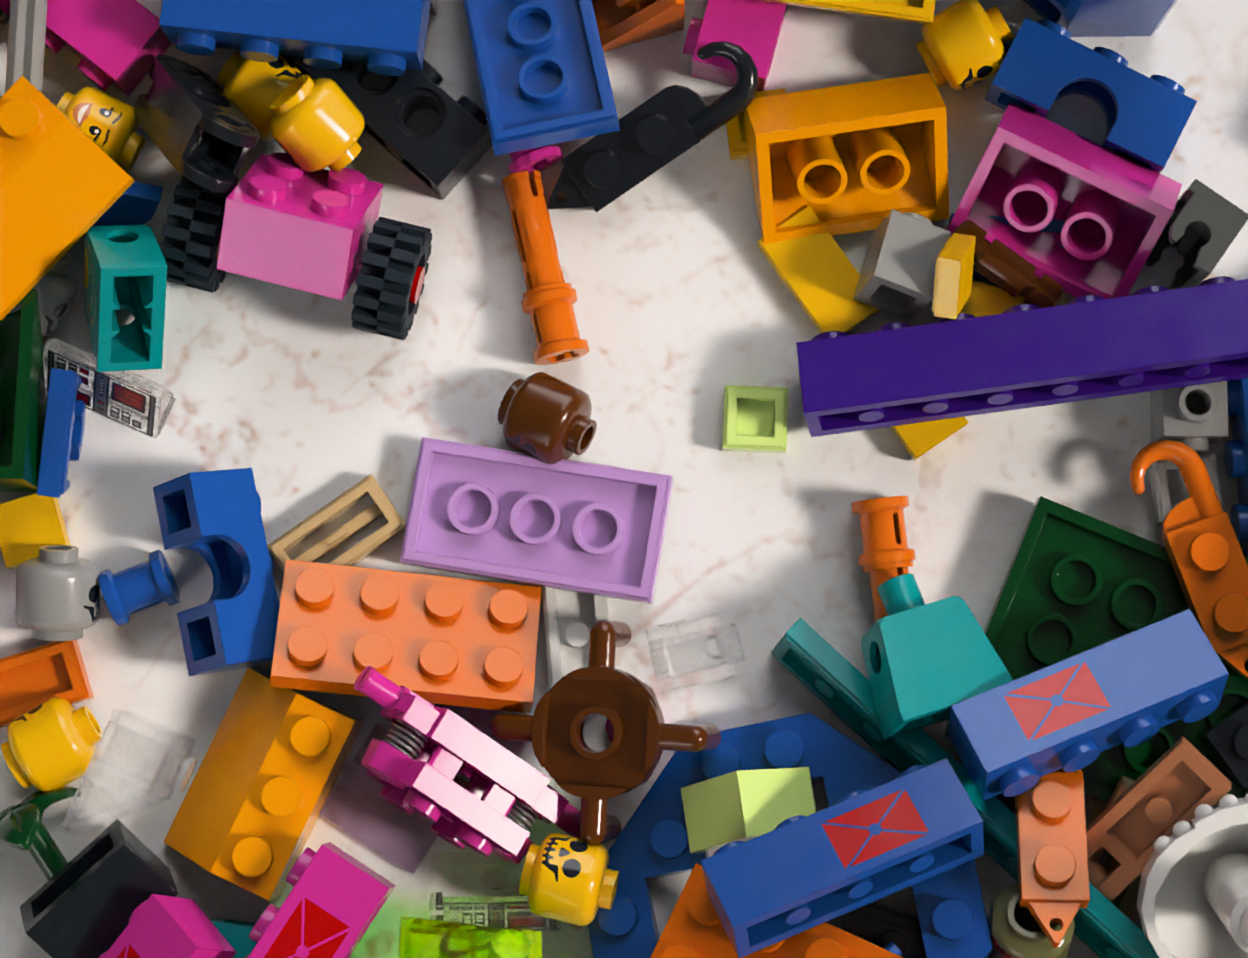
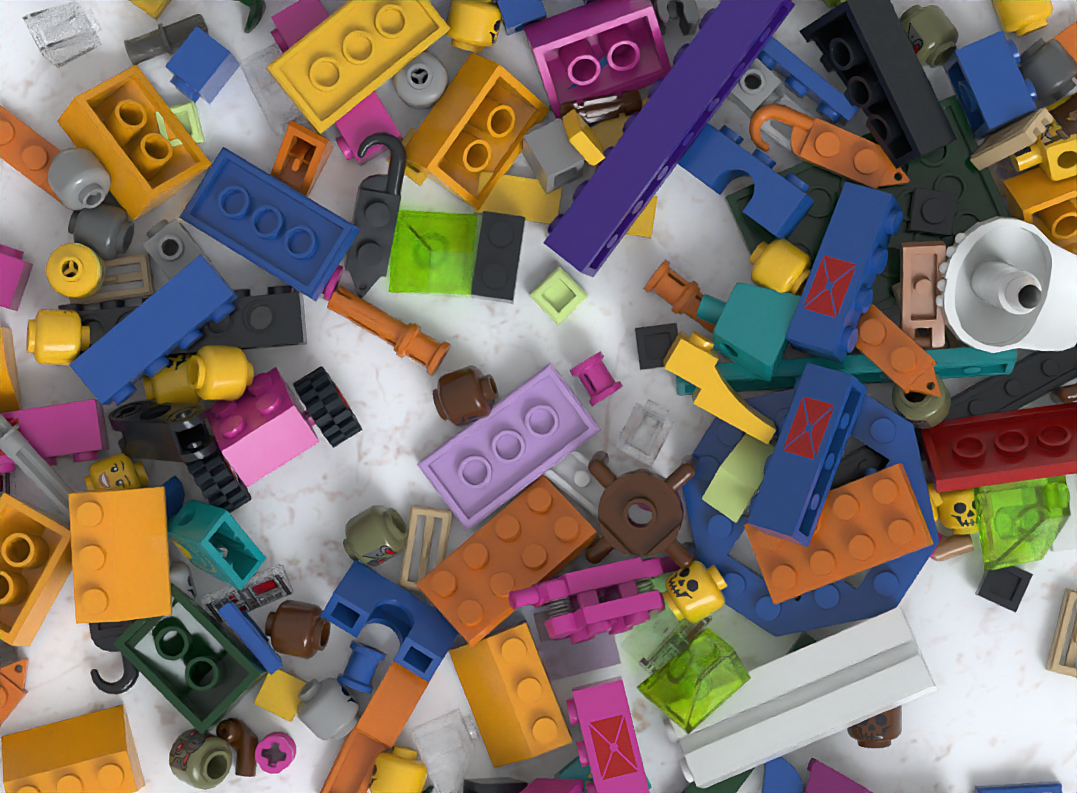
camera: 50 degrees left, 5 degrees up
(116, 478) = (298, 629): none -> reddish brown head
(127, 661) = (391, 705): none -> orange slope
(299, 466) = (375, 535): none -> olive head
(670, 241) = (433, 254): none -> clear neon green slope
(703, 545) = (596, 378): none -> dark pink bush
(733, 311) = (498, 257): none -> black brick
(804, 579) = (654, 344): none -> black plate
(825, 632) = (696, 362): none -> yellow slope
(834, 62) = (421, 94): none -> light grey head
(1023, 627) = (780, 267): none -> yellow head
(1075, 450) = (776, 202): none -> blue arch

